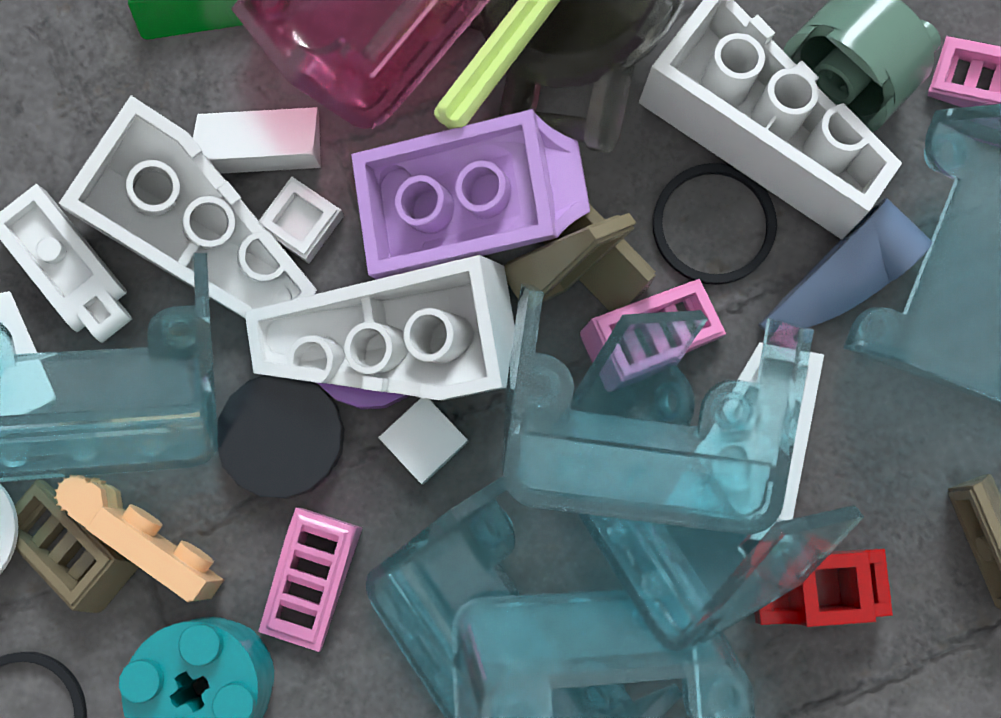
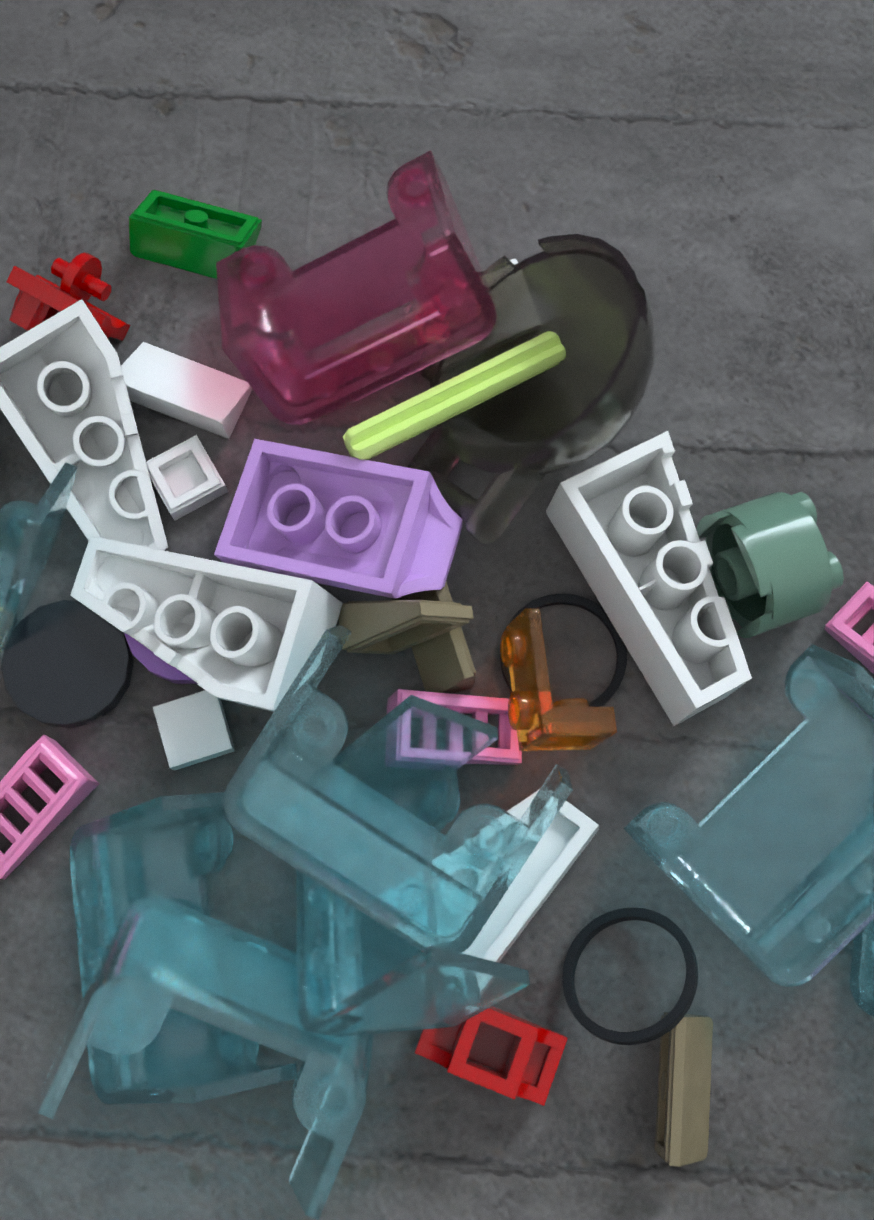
camera: 20 degrees right, 5 degrees down
(85, 117) = (80, 280): none -> red hips
(715, 275) = (538, 721): none -> clear orange bracket
(855, 268) = (669, 760): sand blue piece -> none
(922, 412) = (672, 1018): none -> black piece

